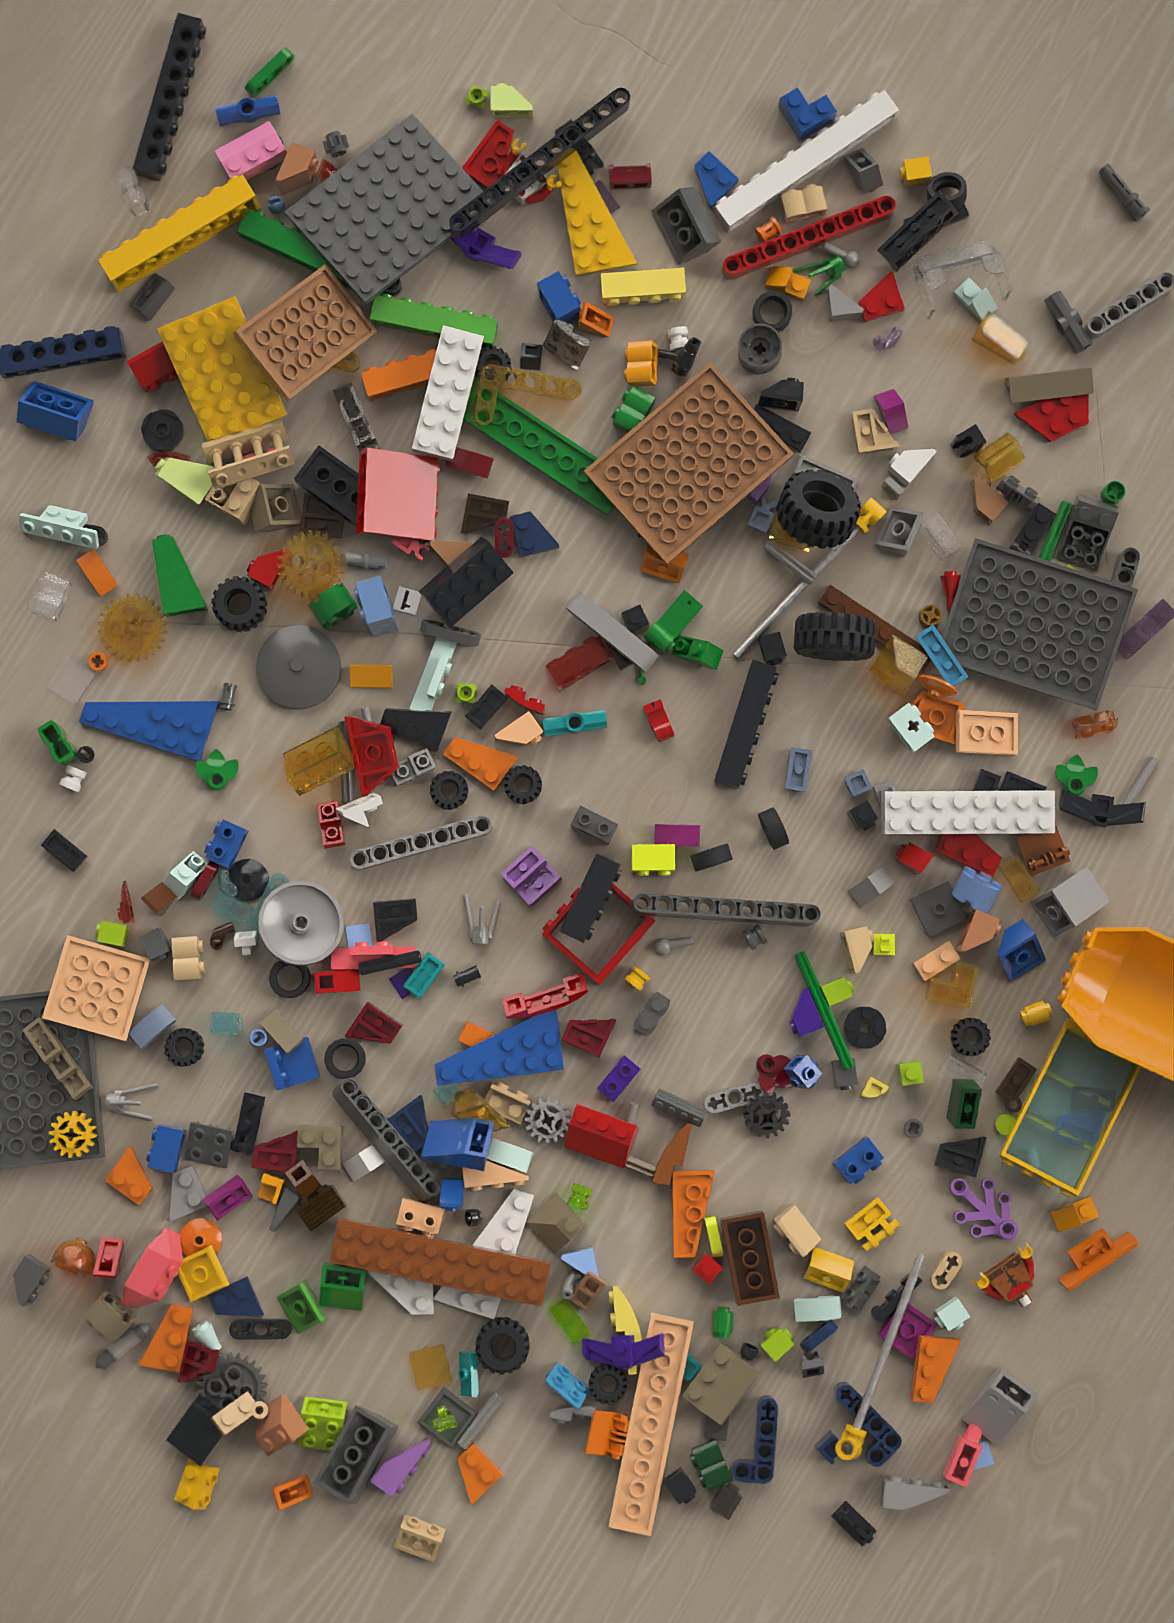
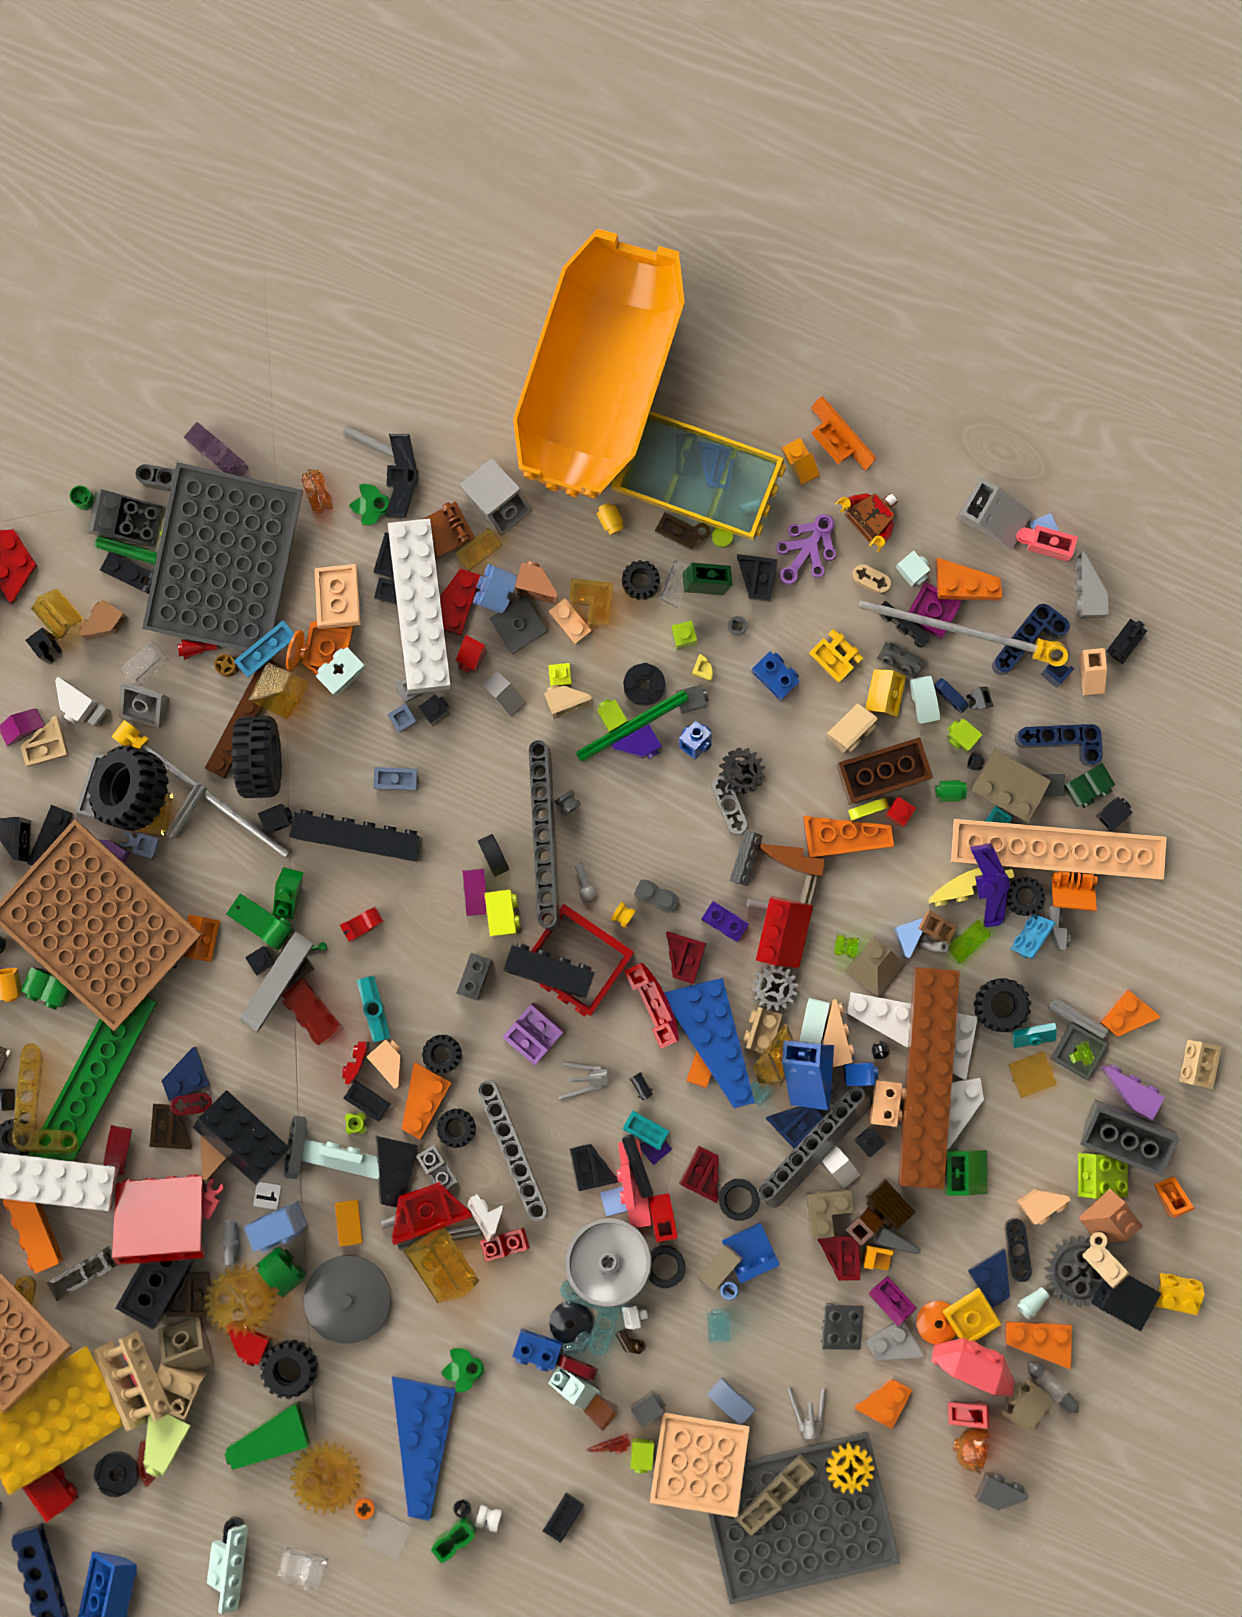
camera: 90 degrees left, 0 degrees up
(97, 572) = (272, 1522): orange slope -> none
(166, 1148) = (852, 1370): blue brick -> none
(174, 1038) = (761, 1365): black tyre -> none
(187, 958) = (657, 1374): tan brick -> none
(197, 1361) = (1059, 1309): dark red wing -> none
(228, 697) = (386, 1368): dark grey pin -> none
(248, 1124) = (816, 1289): black plate -> none
(302, 1307) = (991, 1211): bright green slope -> none
(302, 1357) = (1040, 1204): none -> light nougat slope
(384, 1194) = (869, 1141): none -> black brick
(726, 1500) = (1122, 767): clear smoke brick -> none
(773, 828) = (457, 796): black tyre -> none
(774, 1075) = (702, 767): dark red plate -> none
(826, 1484) = (1093, 671): none -> light nougat slope
(1019, 950) = (549, 540): blue slope -> none
(1029, 495) = (92, 579): dark grey hinge -> none

